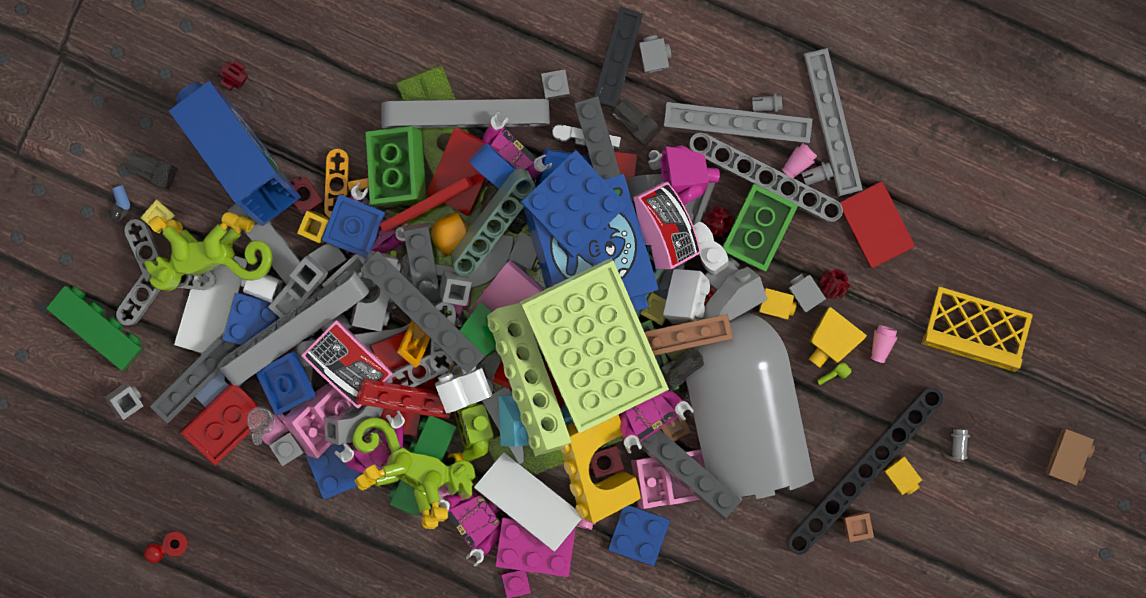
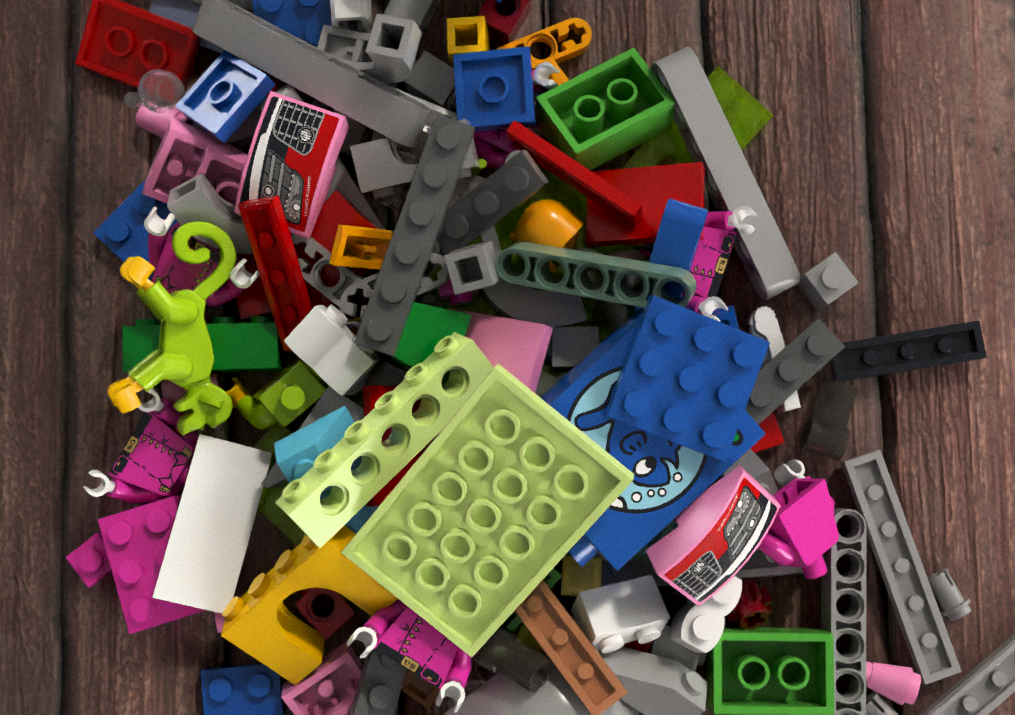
camera: 60 degrees right, 5 degrees down
(286, 449) = (136, 146): light grey brick -> none
(654, 54) = (936, 401): light grey brick -> none

